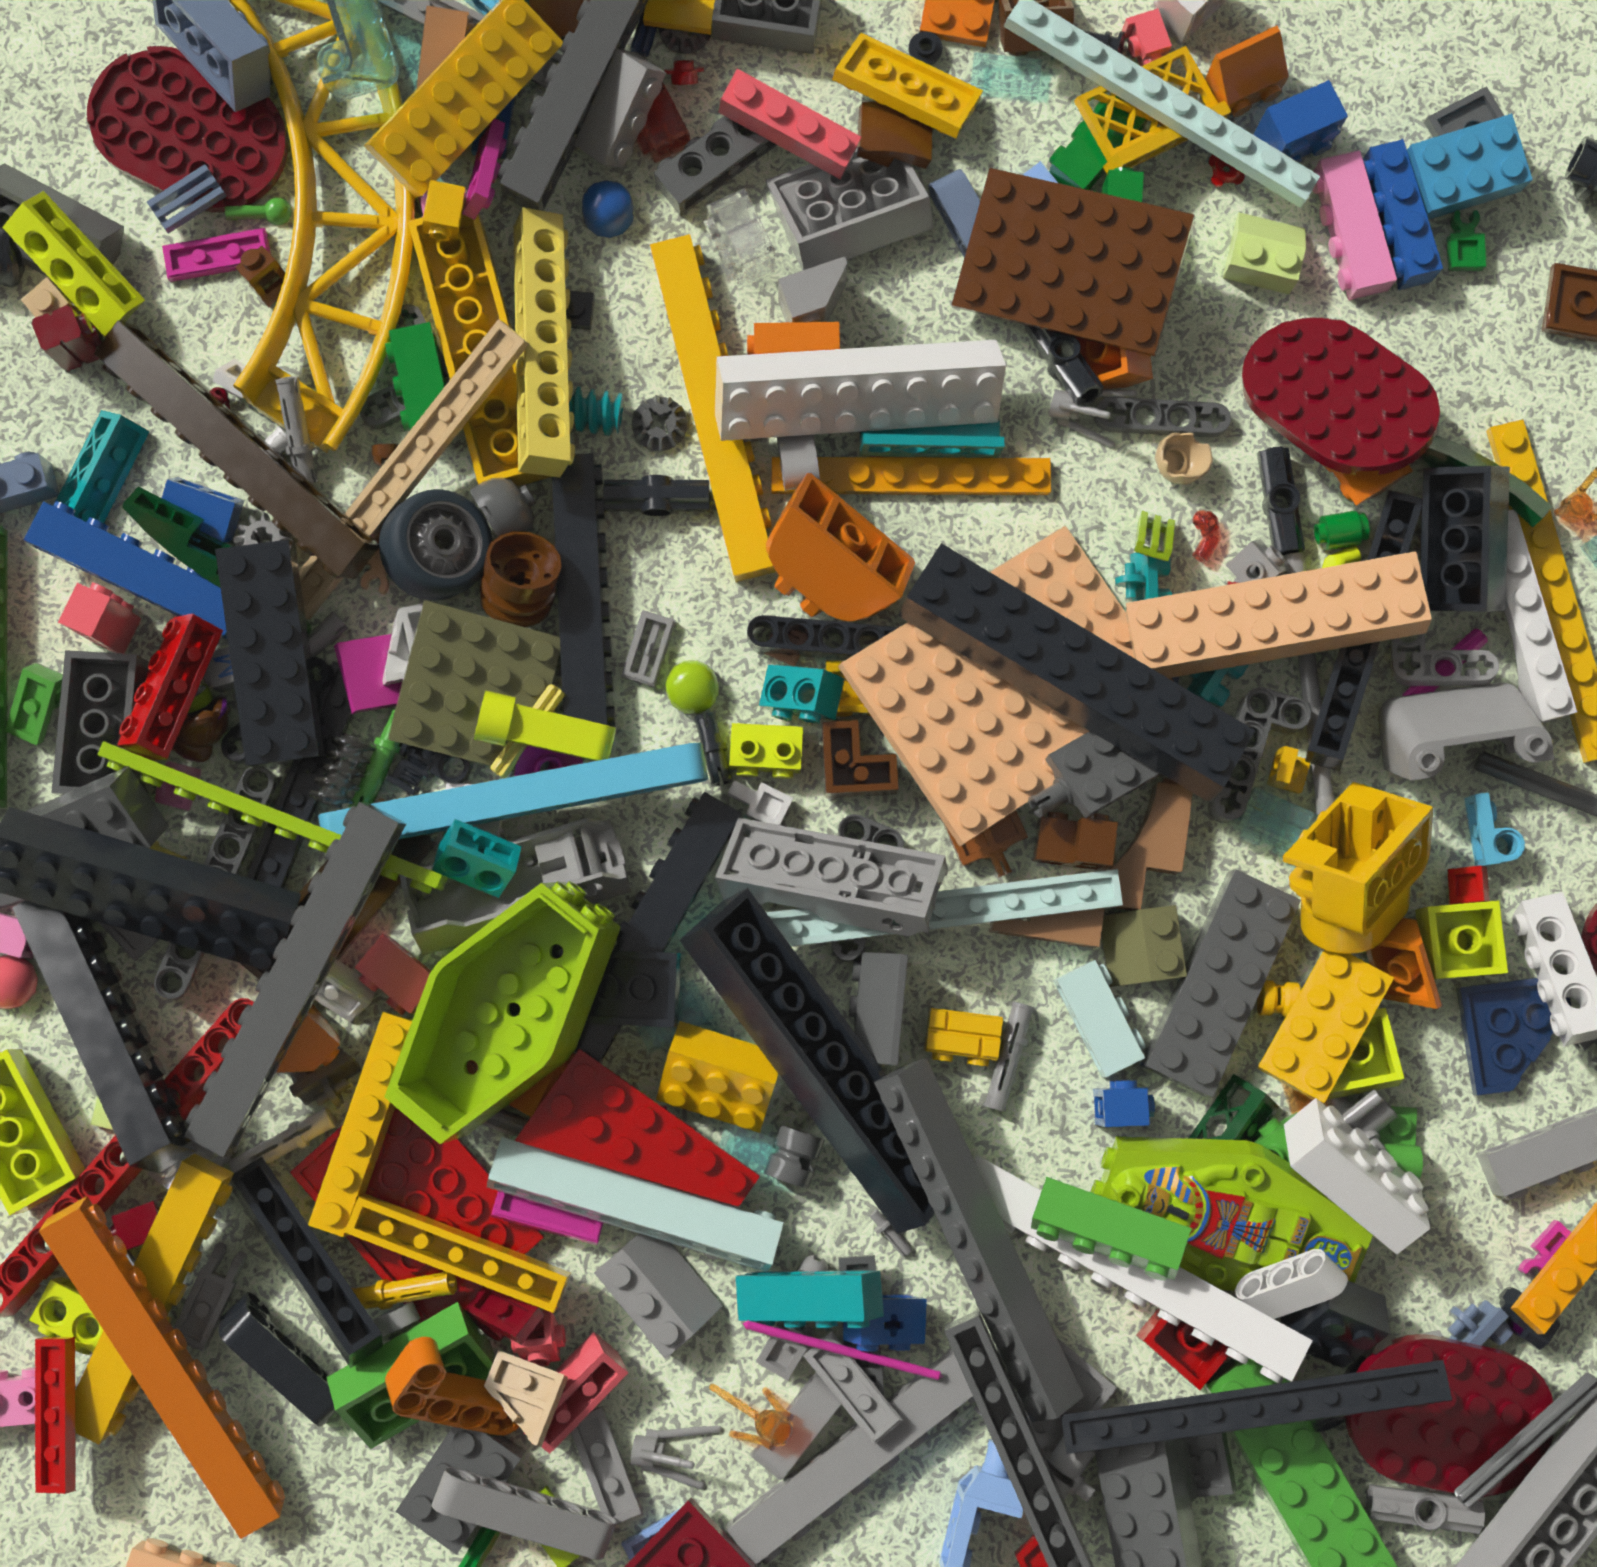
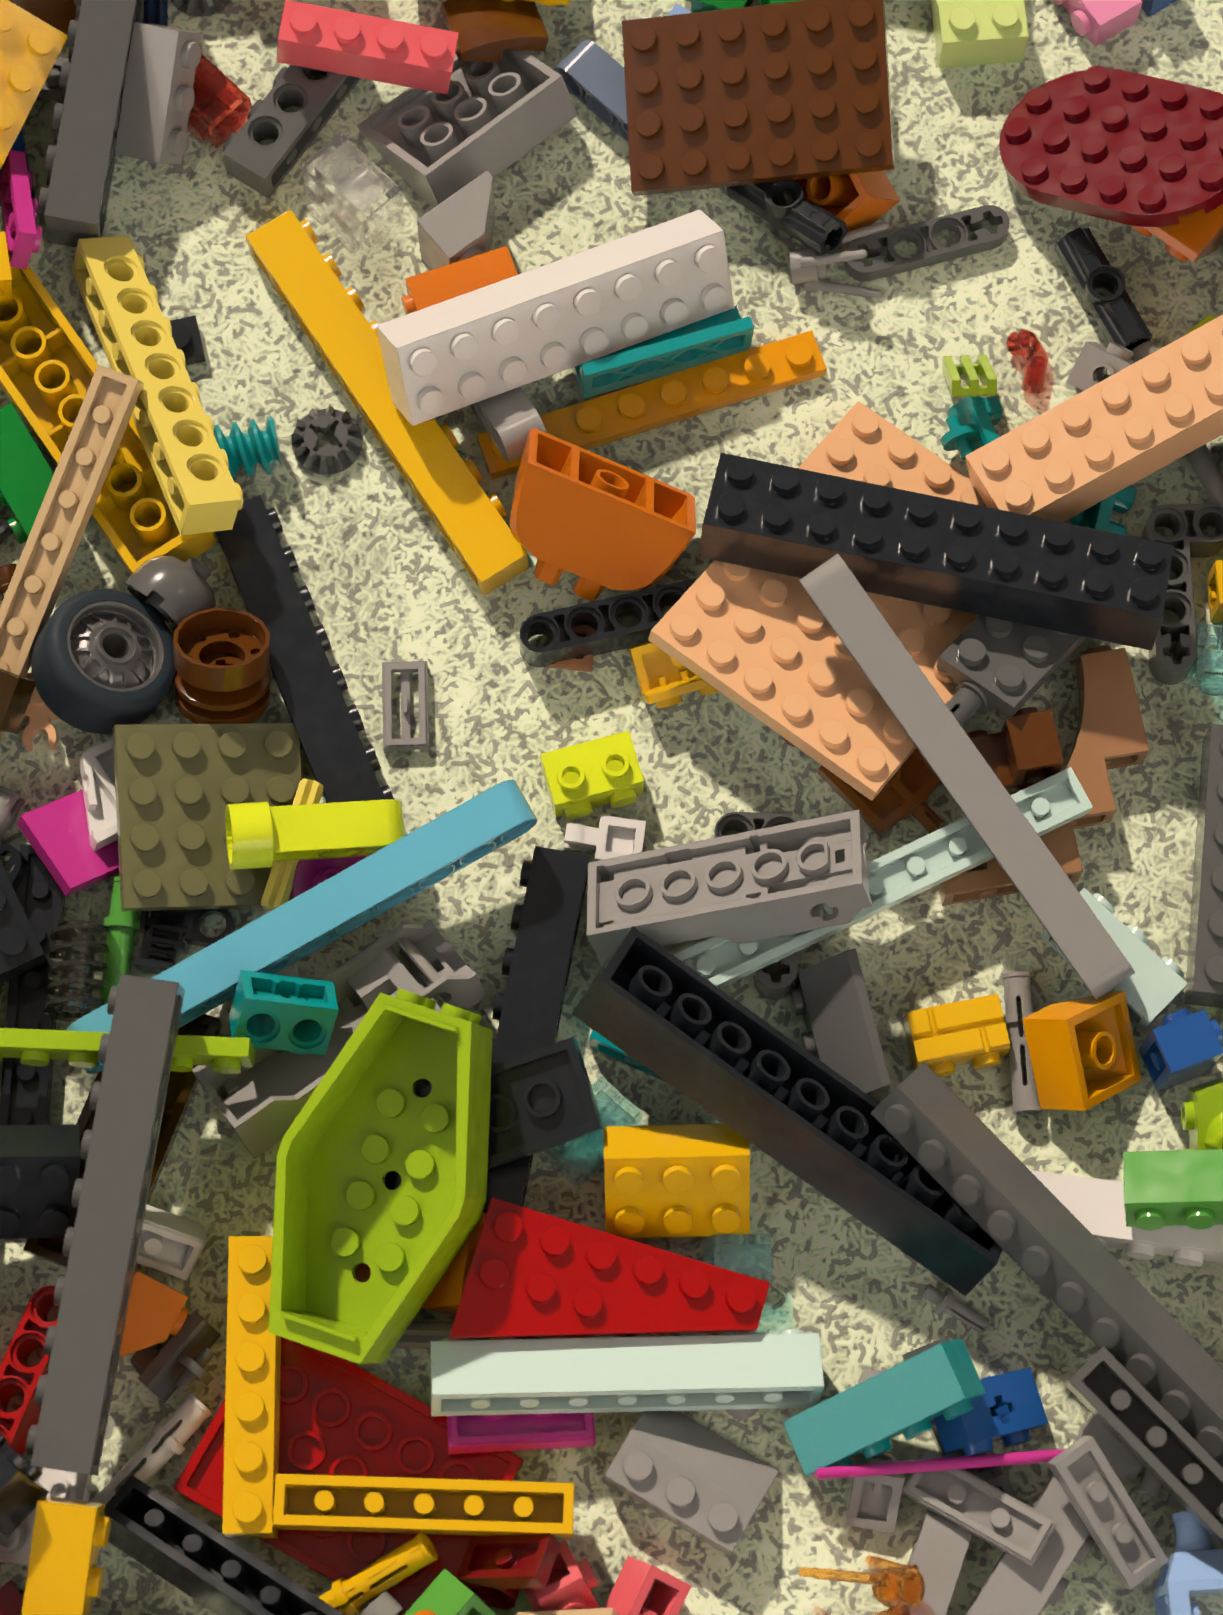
camera: 15 degrees left, 10 degrees down
(395, 973) = (225, 1196): coral brick -> none
(607, 208) = (178, 216): blue hair -> none
(656, 495) = (353, 523): black piece -> none
(684, 72) = (218, 34): red plate -> none
(692, 687) = (475, 733): lime hair -> none
(713, 749) = (533, 793): black pin -> none
(794, 1156) = (802, 1250): dark grey wheel -> none
(801, 692) = (612, 691): teal brick -> none
(848, 772) = (703, 765): reddish brown brick -> none
(942, 1425) = (1108, 1512): none -> light grey plate
(1034, 853) = (967, 777): none -> light grey beam
(1049, 1081) = (1082, 1051): none -> light orange slope
(1143, 946) = (1137, 855): olive slope -> none
(1183, 458) = (969, 280): tan hair -> none
(1341, 530) = (1186, 301): green brick -> none

